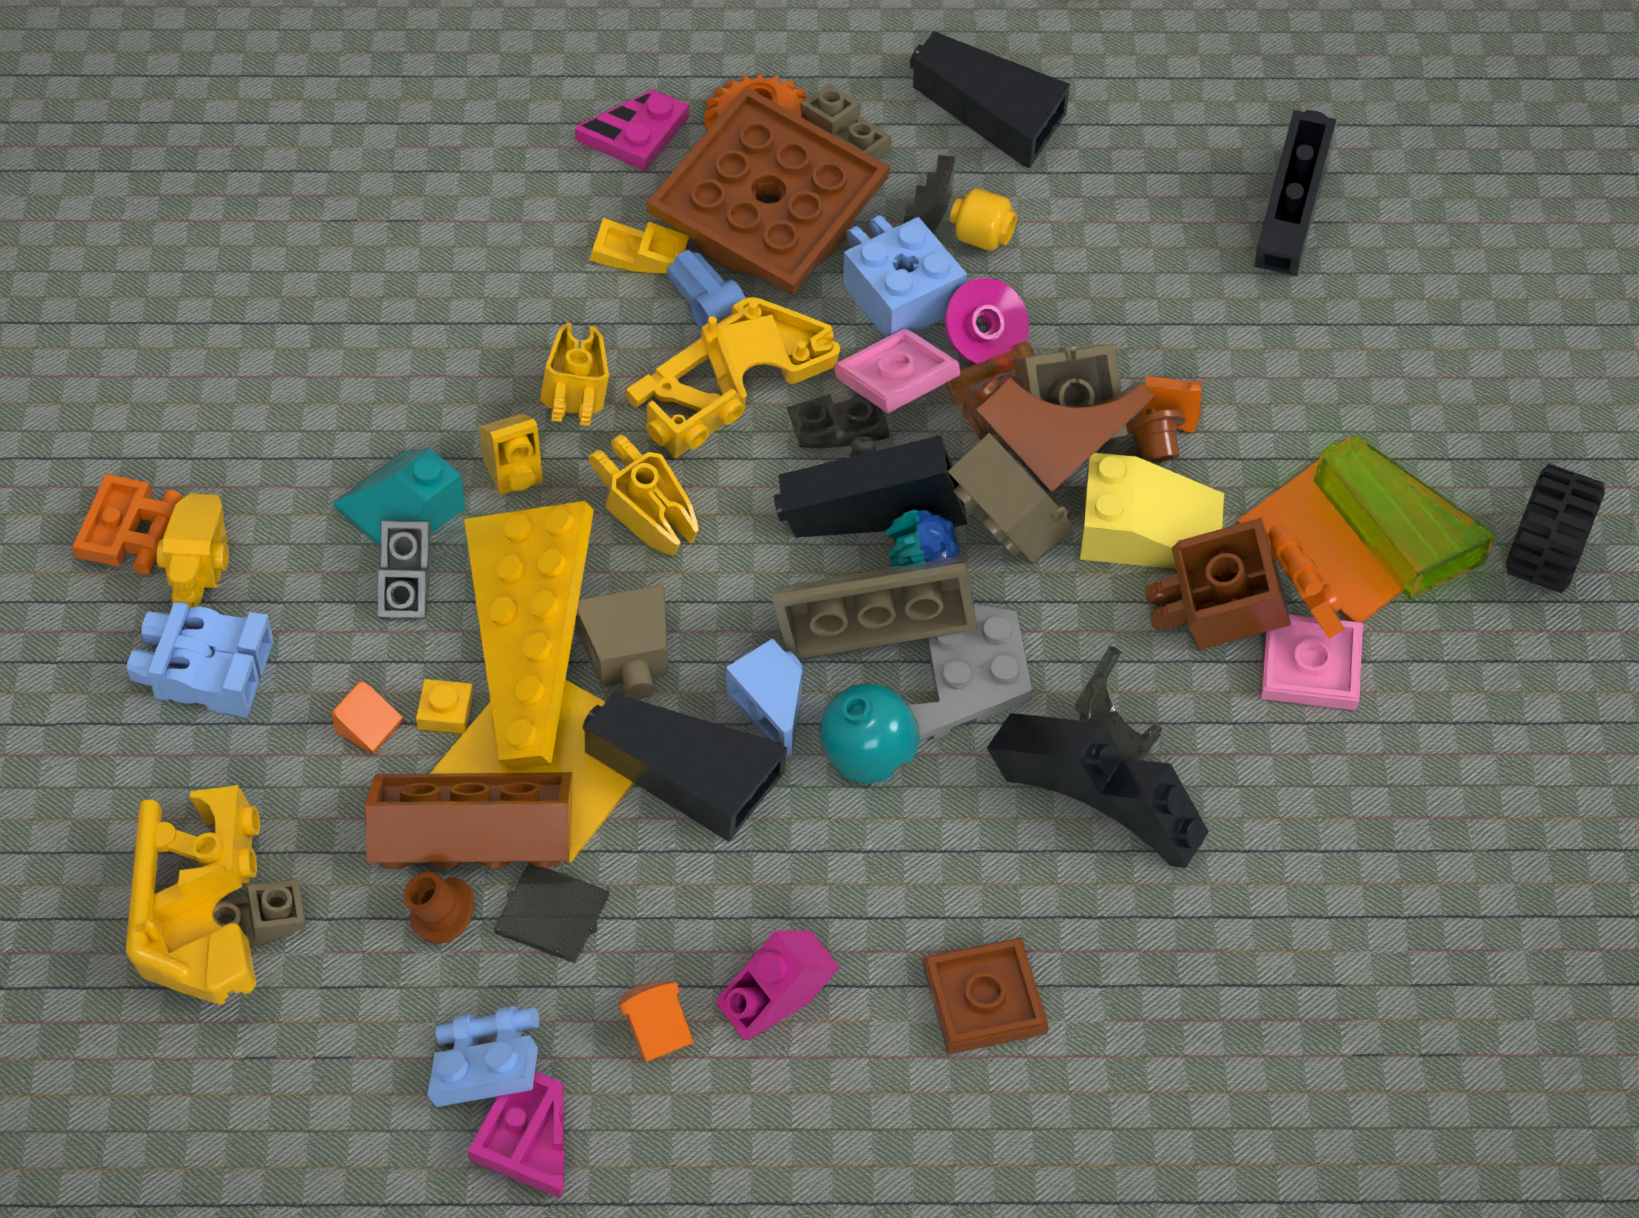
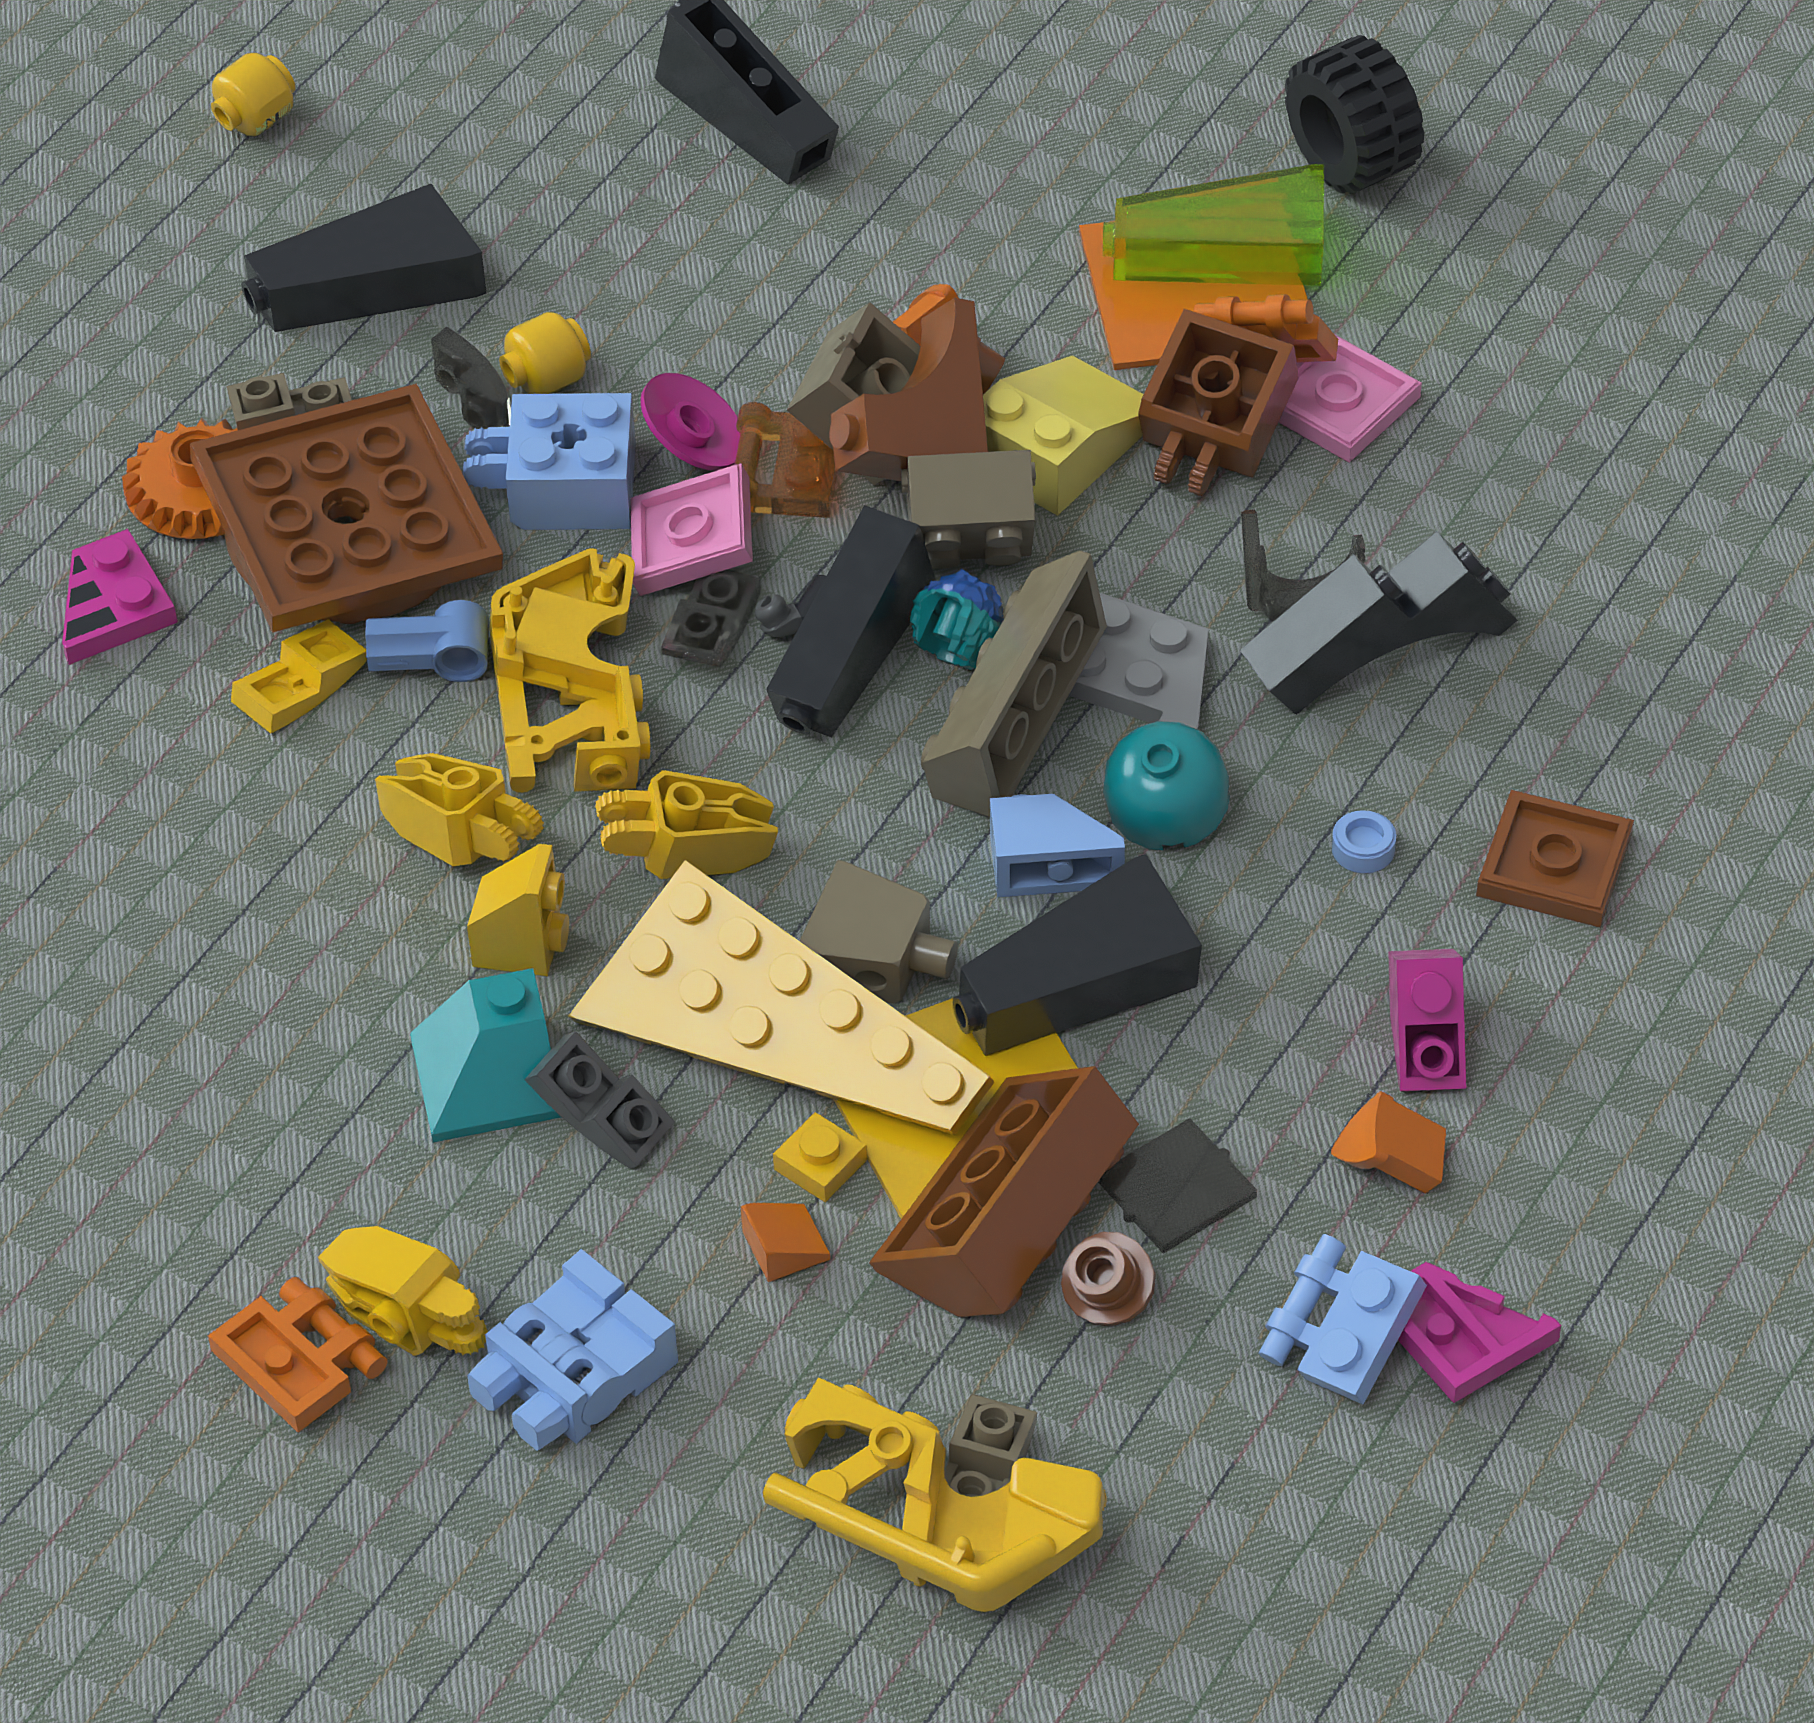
camera: 55 degrees left, 5 degrees down
(916, 874) = (1363, 841): none -> light blue tile

